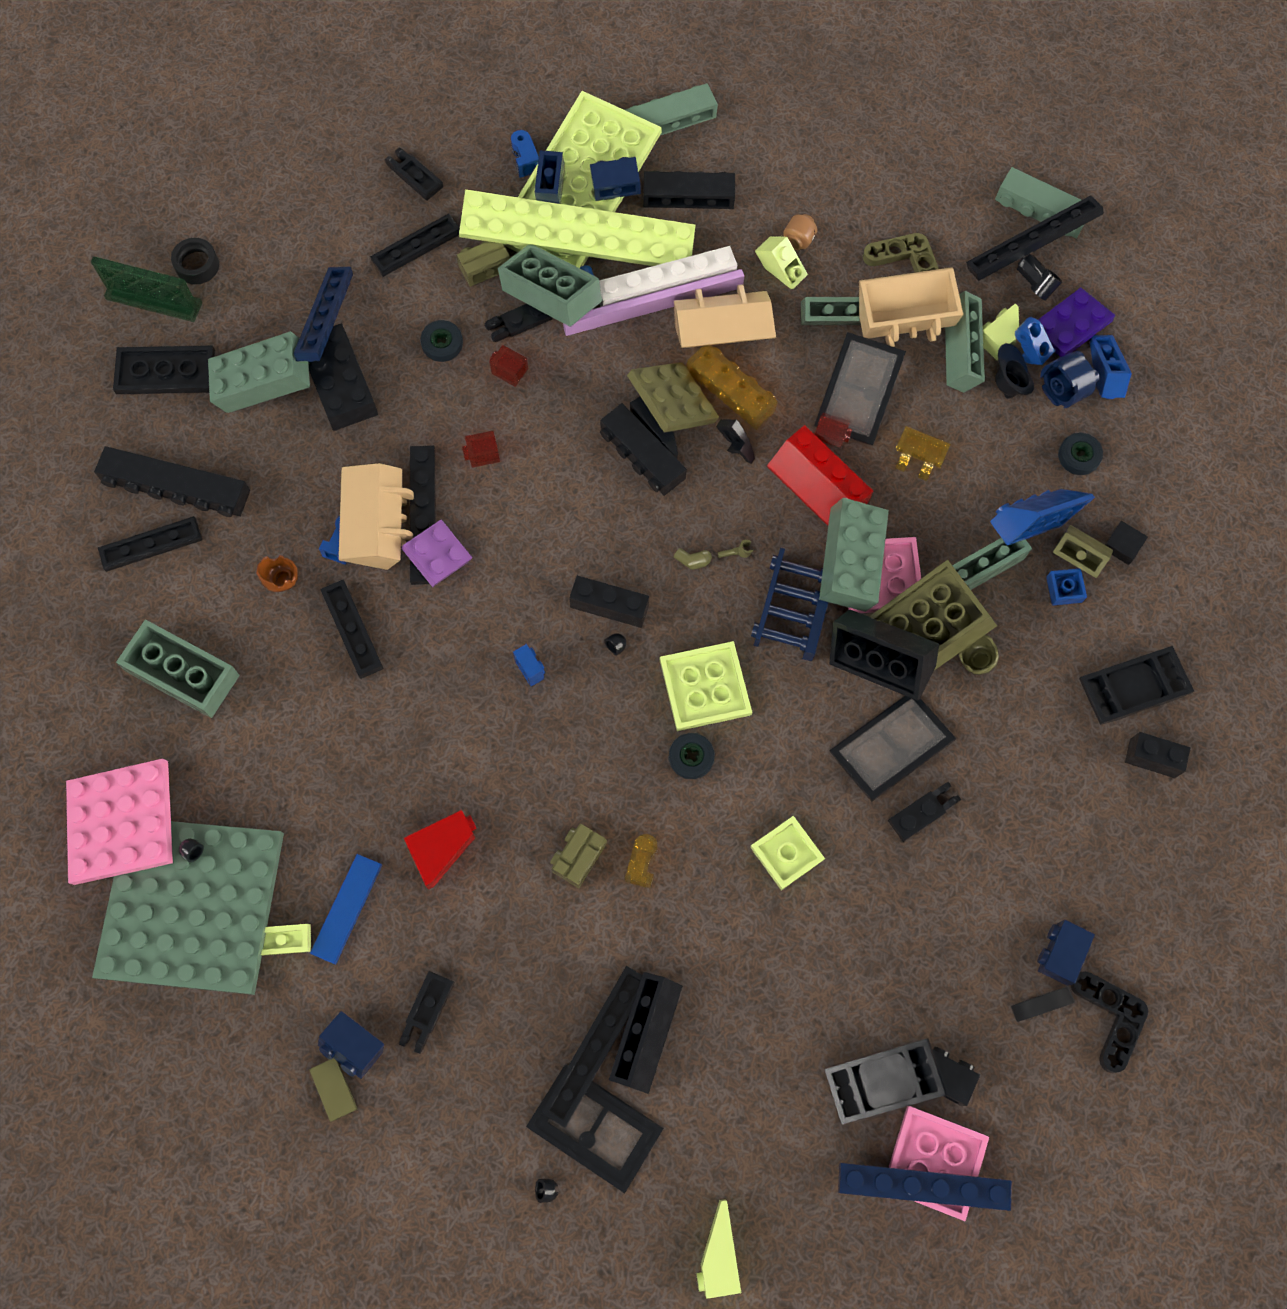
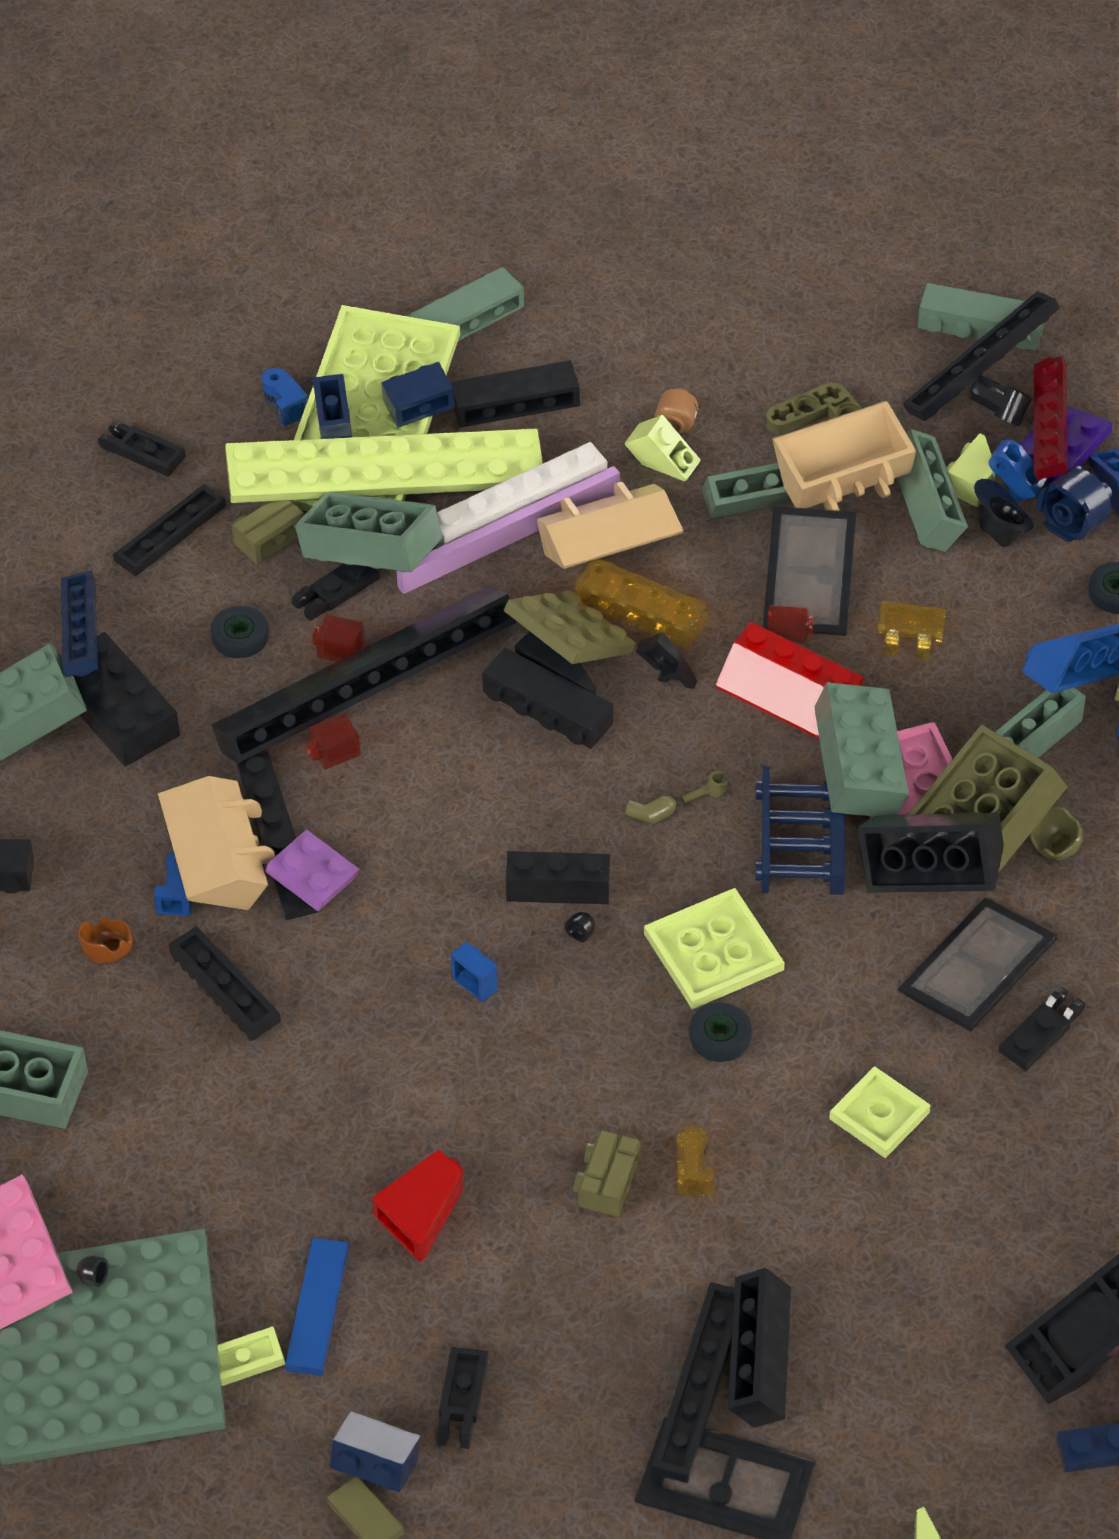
camera: 10 degrees left, 20 degrees down
(516, 399) = (362, 674): none -> black brick
(1071, 302) = (1050, 417): none -> dark red plate

